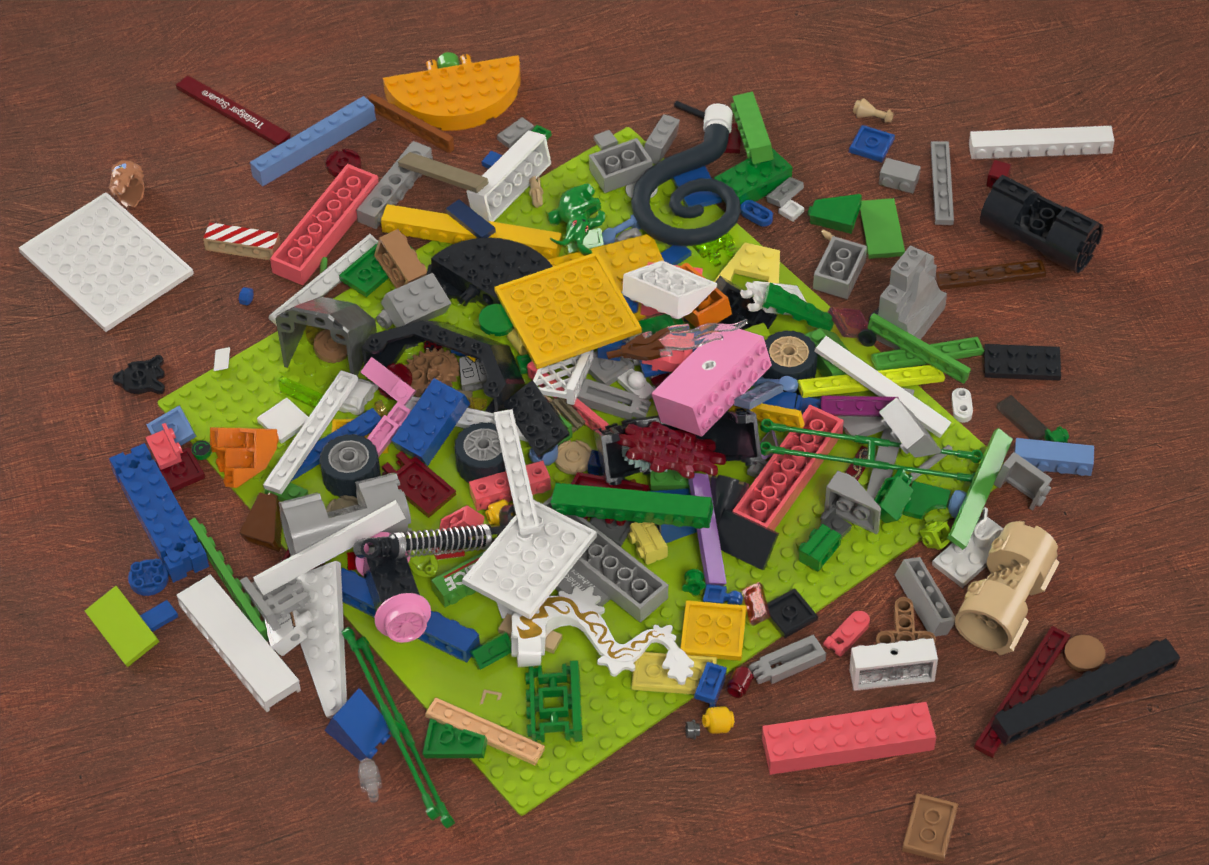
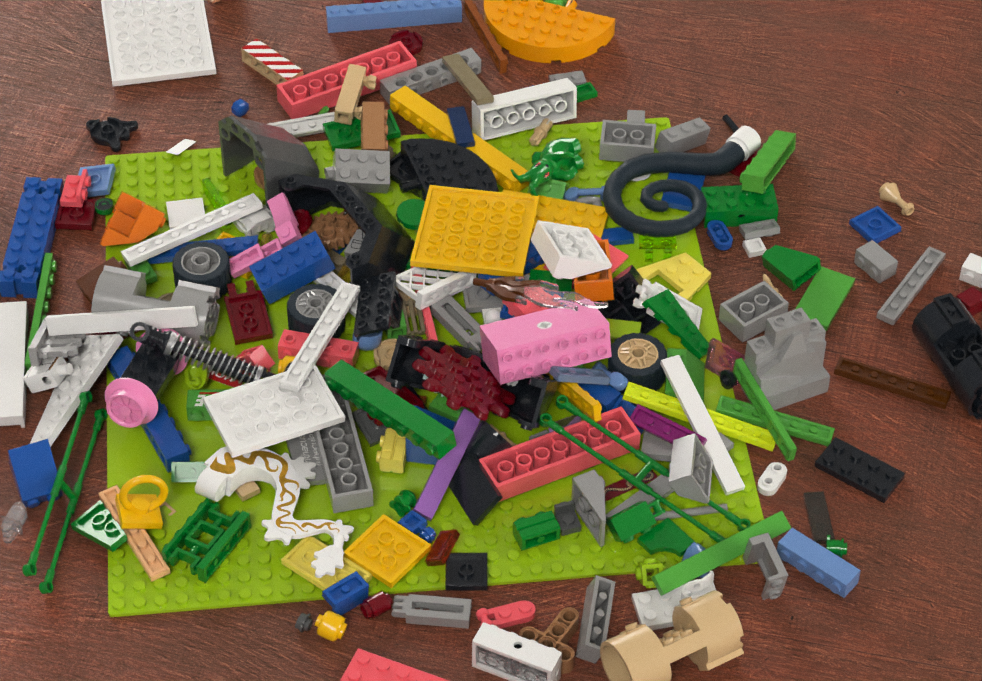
camera: 30 degrees right, 5 degrees down
(348, 236) = (350, 94): none -> tan brick
(478, 708) = (141, 510): none -> yellow tile

